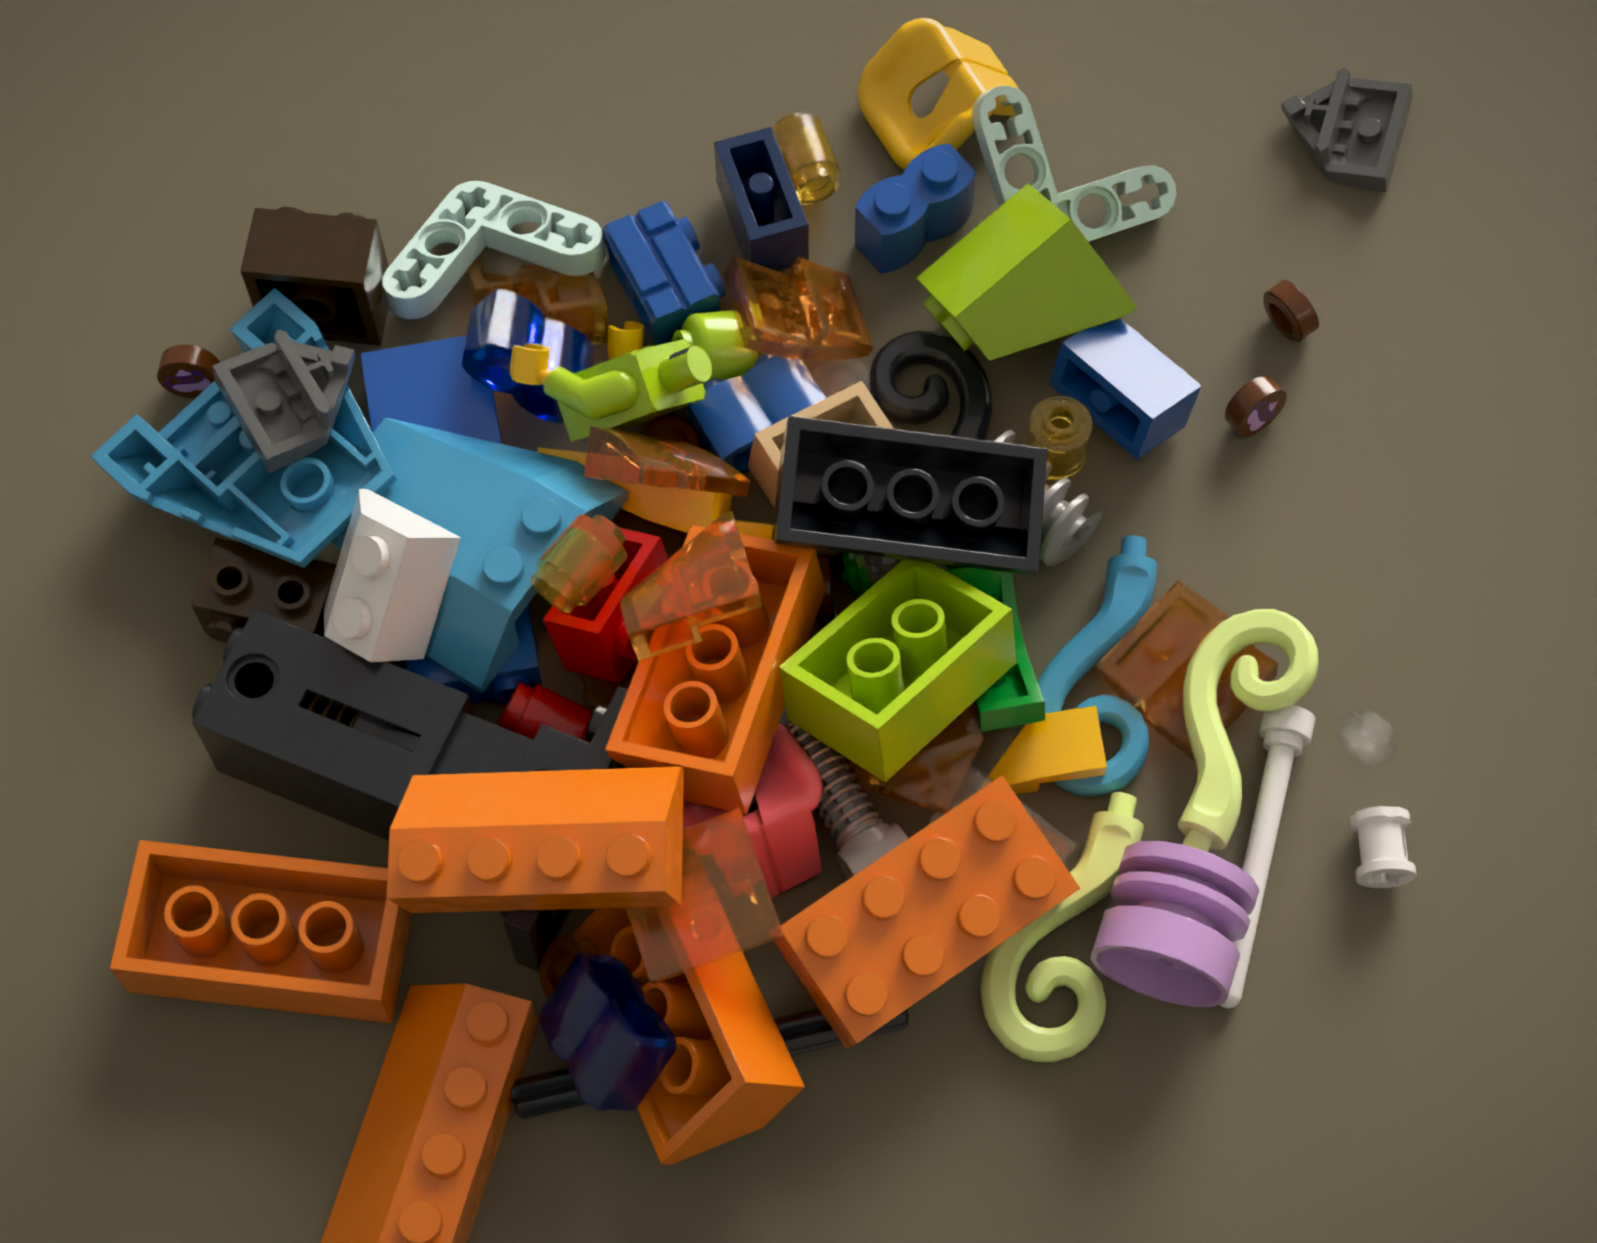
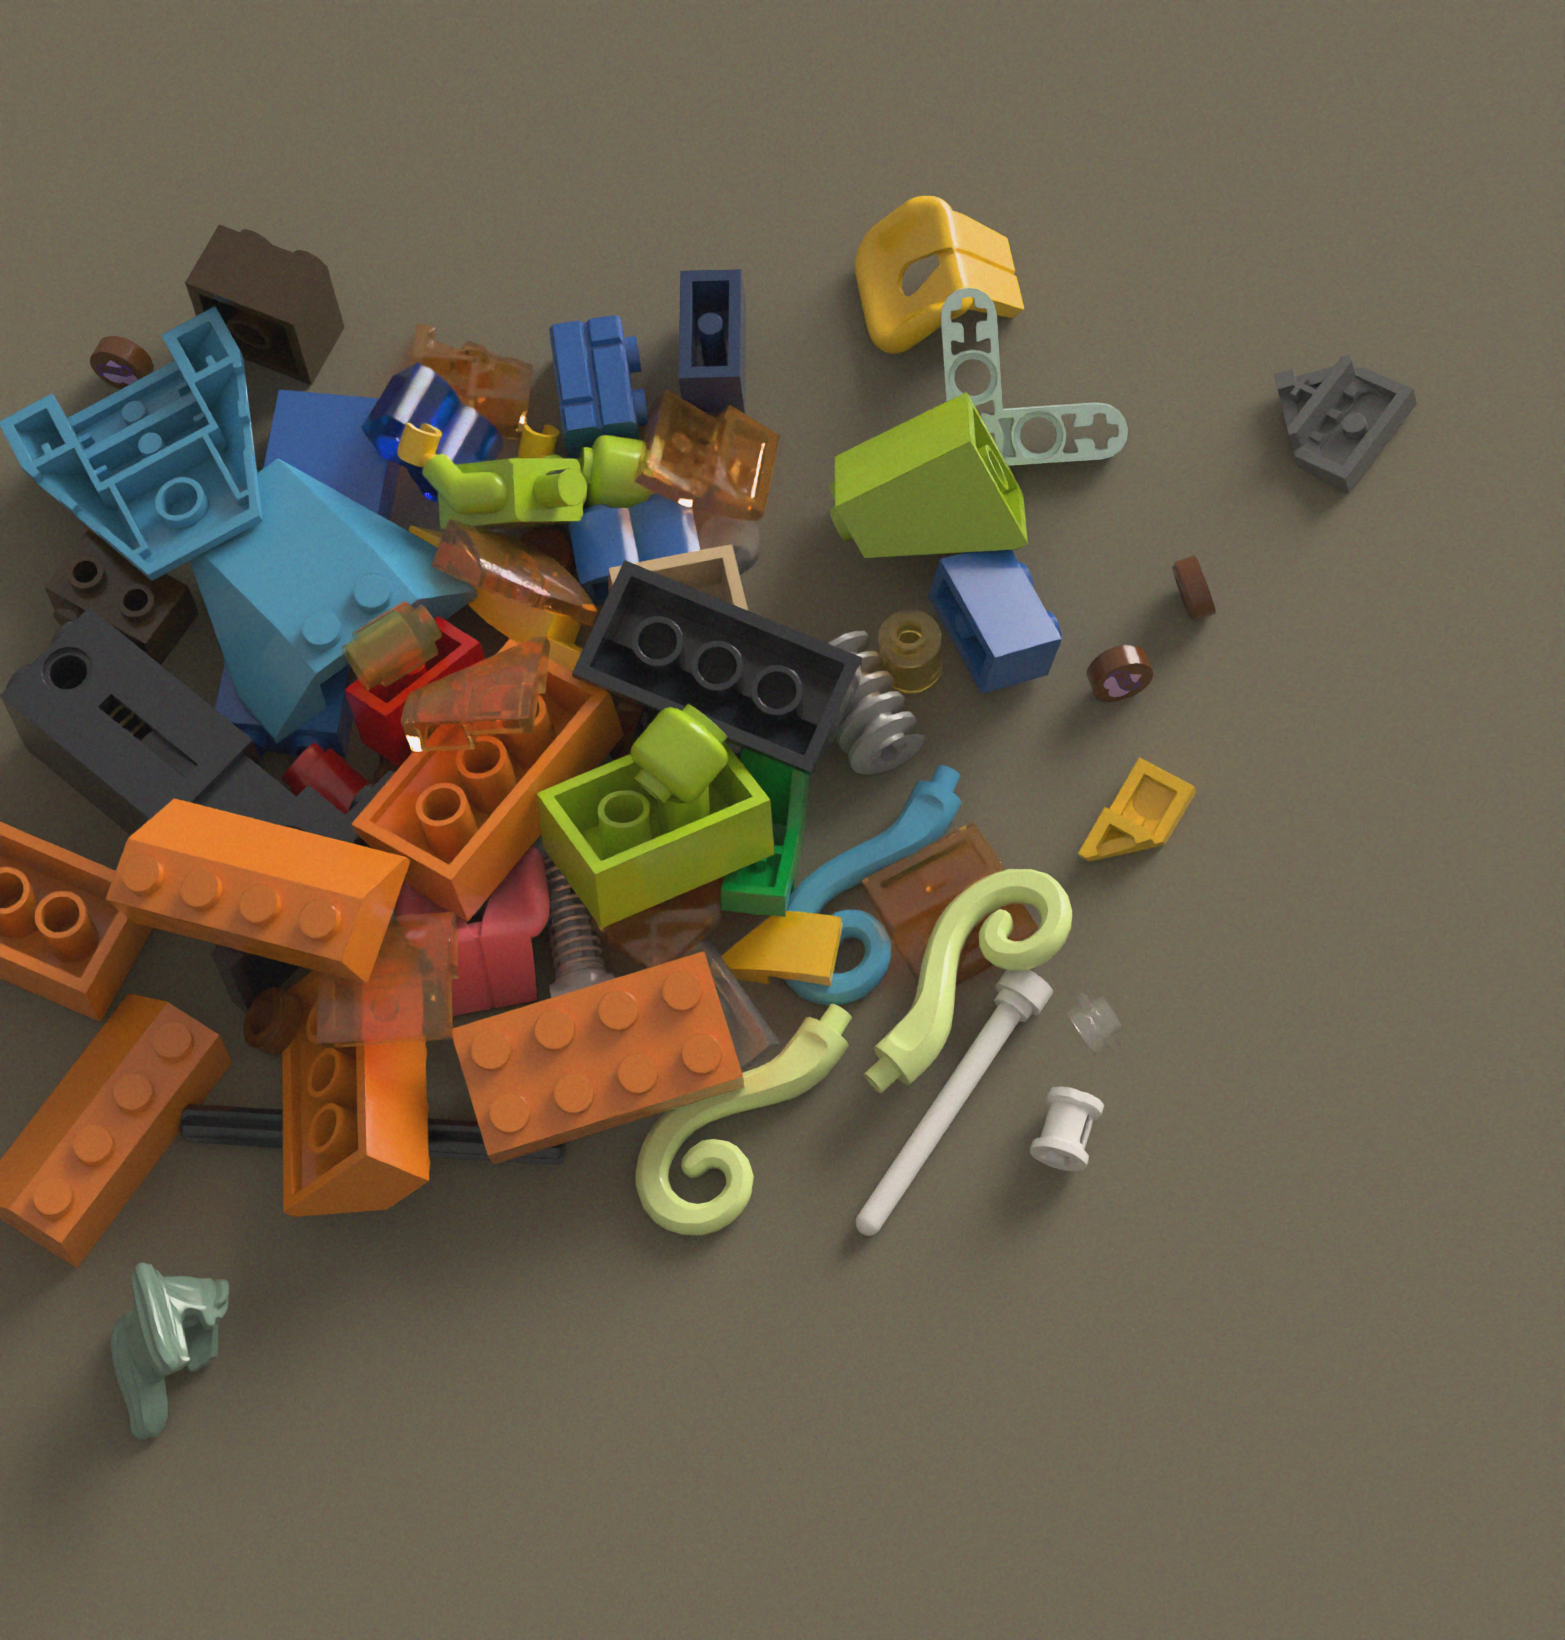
camera: 25 degrees right, 0 degrees up
(285, 396) = (187, 414): dark grey slope -> none
(388, 581) = (217, 615): white slope -> none
(488, 223) = (446, 295): light aqua beam -> none
(606, 1032) = (275, 1081): clear blue brick -> none
(807, 157) = (775, 306): clear yellow brick -> none
(913, 588) = (679, 754): none -> lime head
(914, 208) = (850, 389): blue brick -> none
(946, 354) = (855, 570): black plant -> none
(1175, 923) = (830, 1138): lavender wheel -> none
(1323, 529) = (1141, 814): none -> yellow slope

